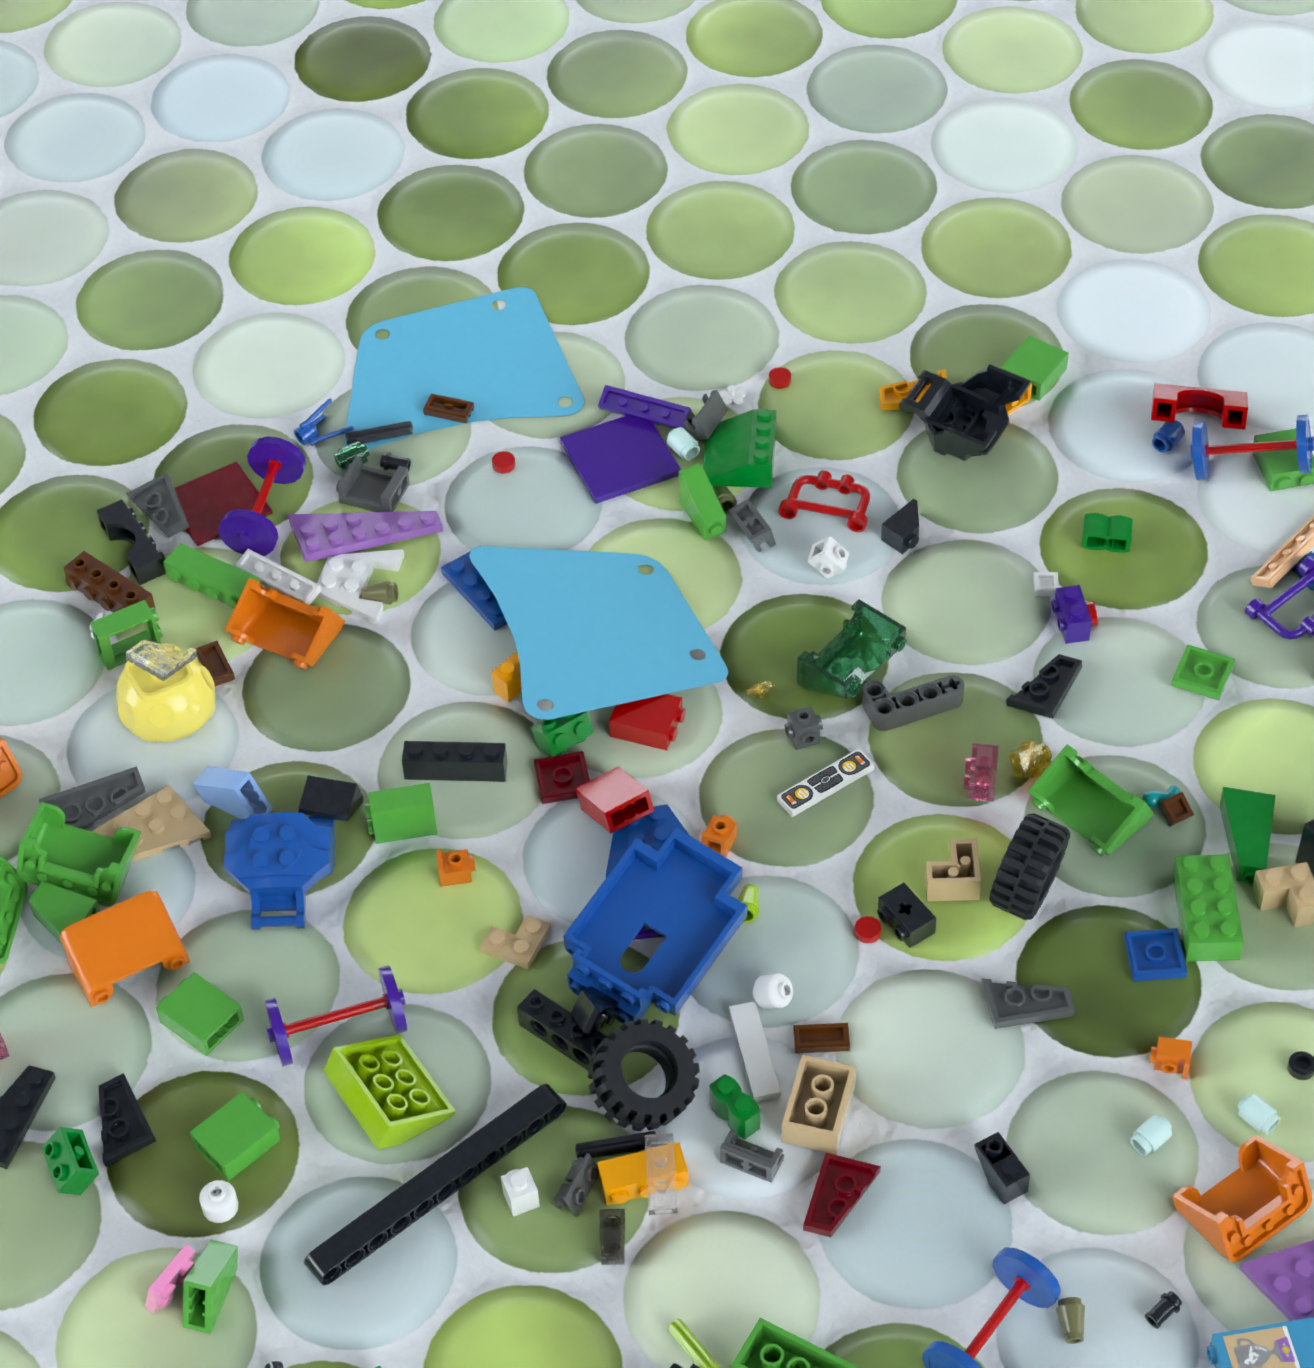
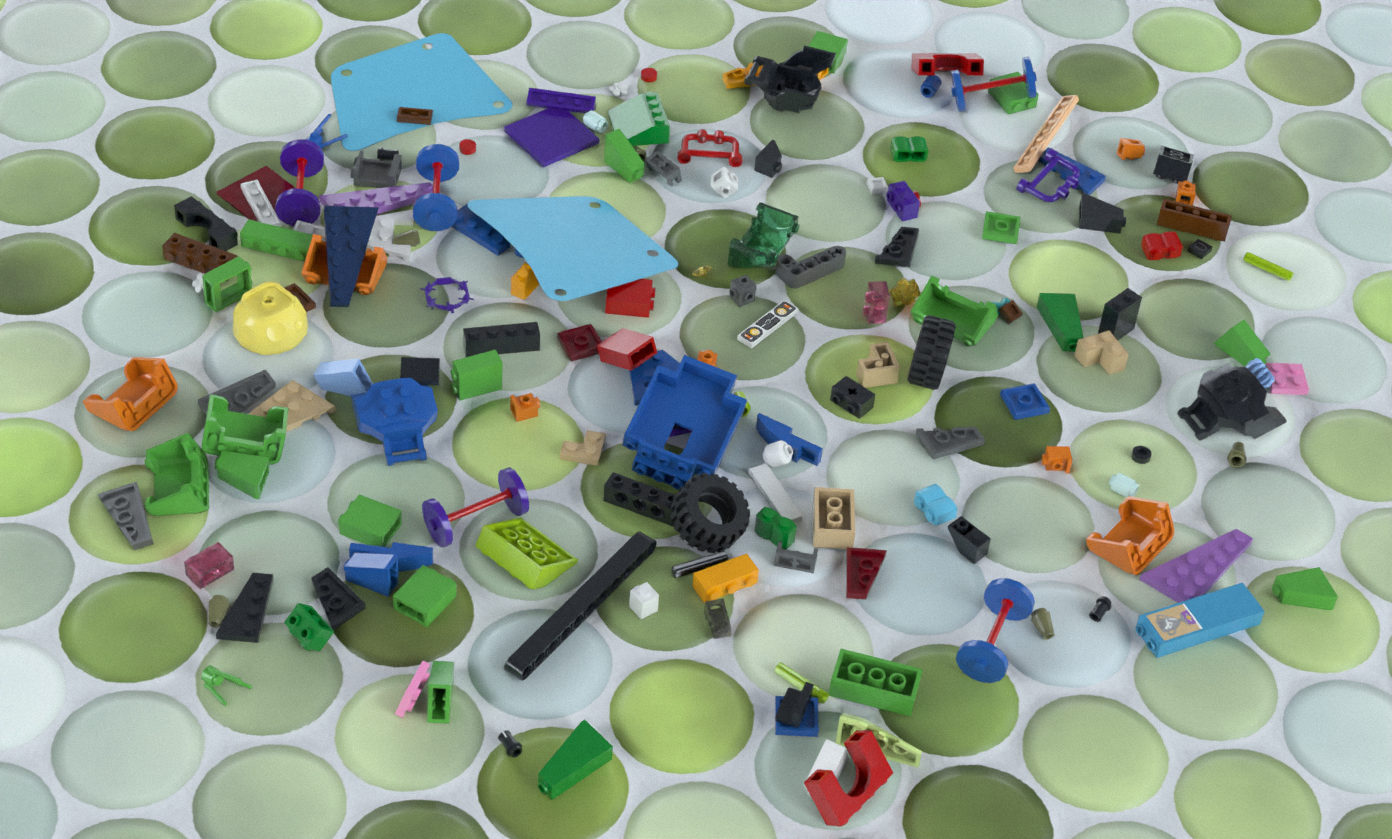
camera: 20 degrees left, 5 degrees down
(121, 944) = (295, 484): orange windscreen -> none
(159, 659) = (268, 290): clear wing -> none
(161, 504) = (220, 198): dark grey wing -> none
(178, 1091) = (373, 572): none -> blue slope
(209, 519) = (259, 203): none -> white tile
(218, 1201) = (428, 637): white head -> none
(219, 1073) = (409, 556): none -> blue slope
(291, 590) = (346, 242): none -> dark blue wing
(348, 453) = (349, 153): clear green brick -> none
(380, 433) = (369, 136): black axle -> none
(406, 662) = (445, 281): none -> dark purple piece
(423, 557) = (434, 209): none -> blue piece
(561, 733) = (572, 312): green brick -> none
(582, 1177) = (681, 591): dark grey hinge -> none
(594, 1010) = (660, 478): black slope -> none
(661, 1174) = (742, 573): clear tile -> none
(708, 417) = (609, 102): dark grey hinge -> none
(788, 960) = (774, 431): none -> blue slope
(821, 1038) = (823, 478): reddish brown tile -> none
(867, 929) = (827, 410): red tile -> none
(972, 1103) = (935, 504): none -> medium azure brick
(1151, 1135) = (1059, 507): light aqua brick -> none
(1207, 908) = (1051, 367): bright green brick -> none

